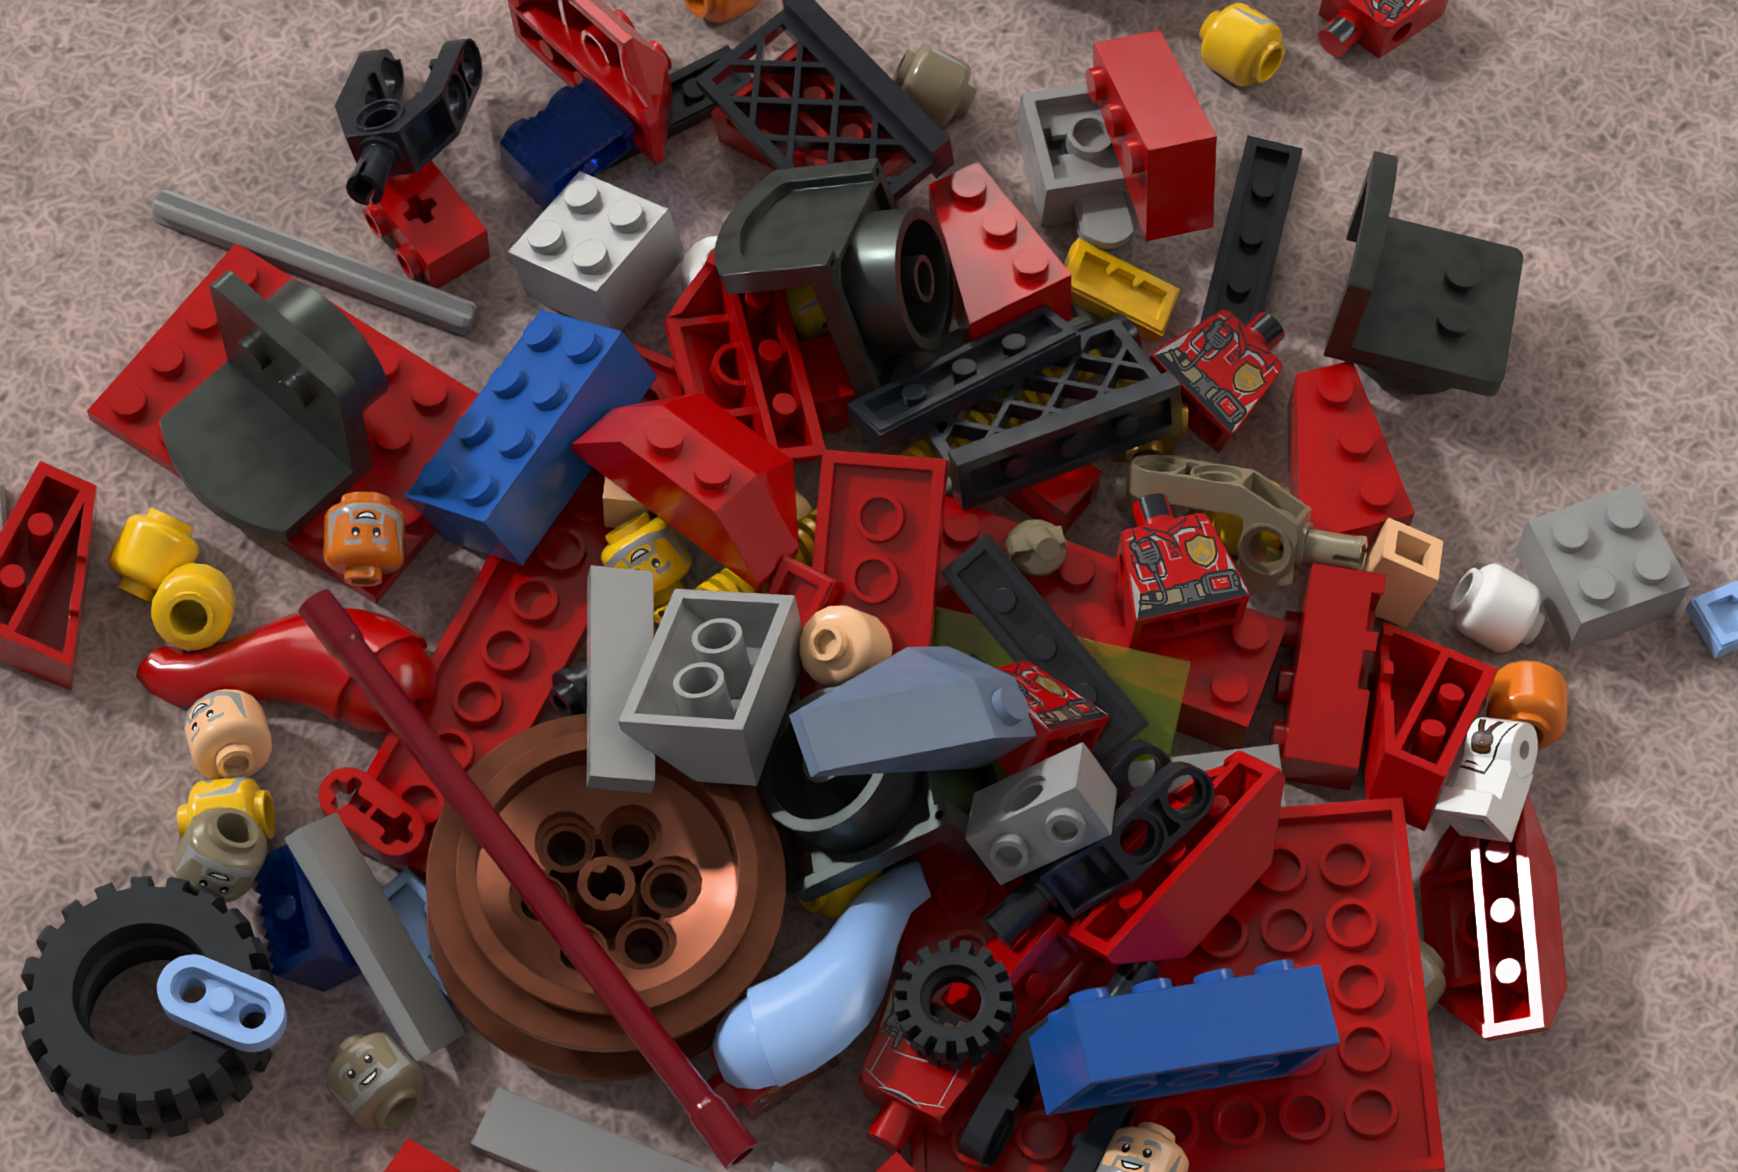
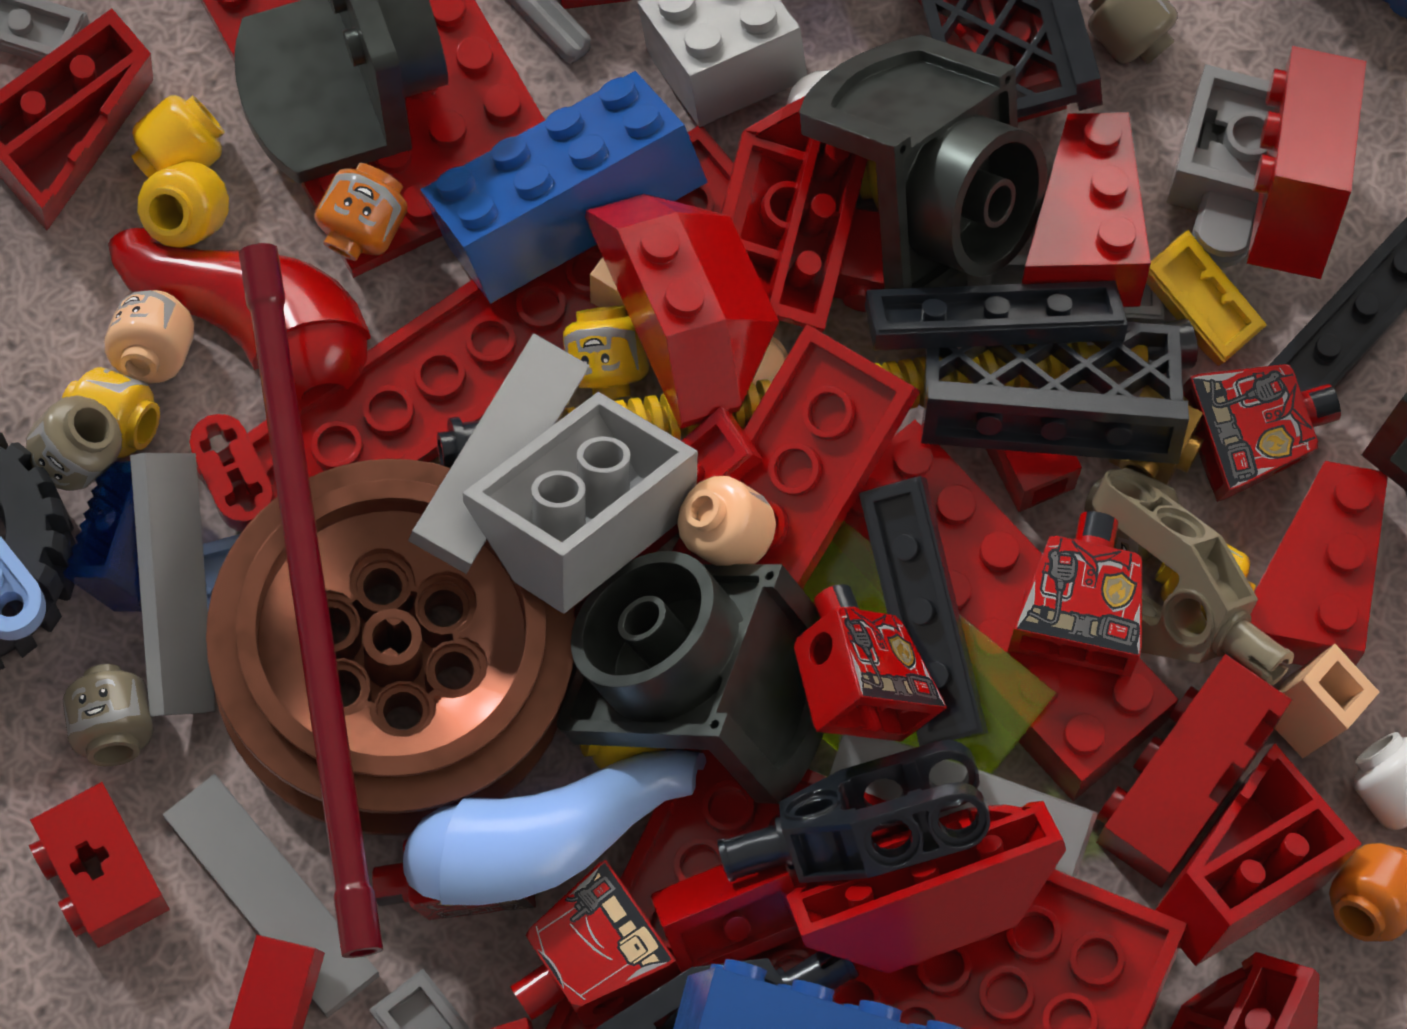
camera: 30 degrees right, 5 degrees up
(914, 715) = (735, 616): sand blue wedge -> none
(948, 967) = (635, 870): black tyre -> none
(1036, 547) = (968, 512): dark tan plate -> none
(1041, 813) = (816, 770): light grey brick -> none
(1491, 779) = (1286, 949): white leg -> none

